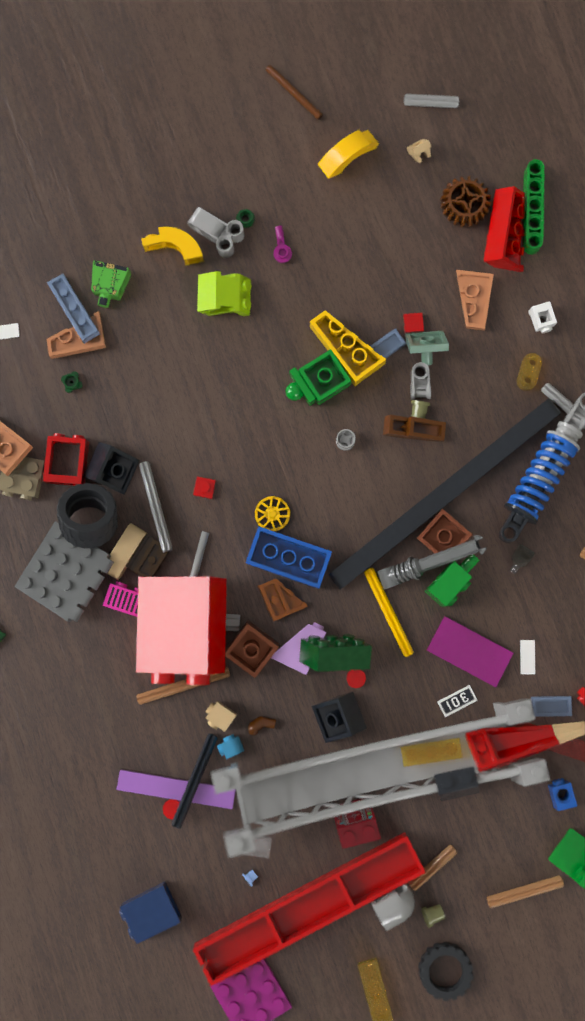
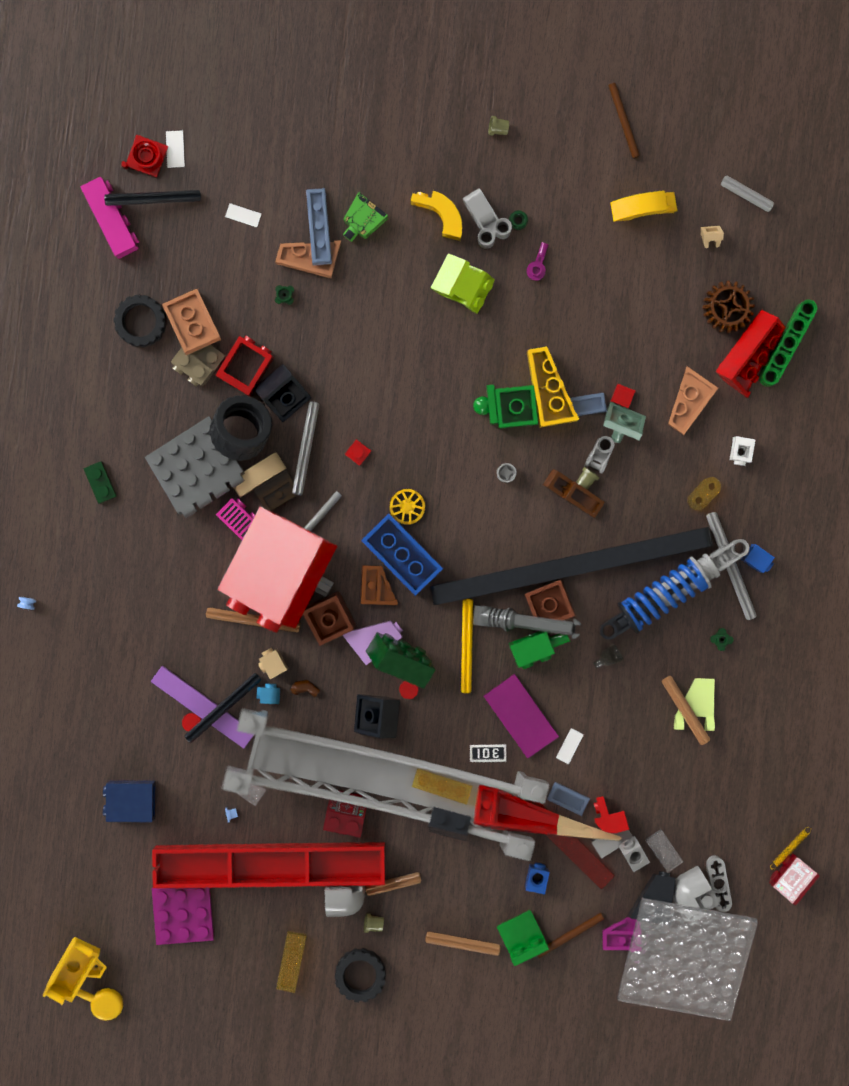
camera: 25 degrees right, 5 degrees up
(188, 148) = (498, 126): none -> olive piece

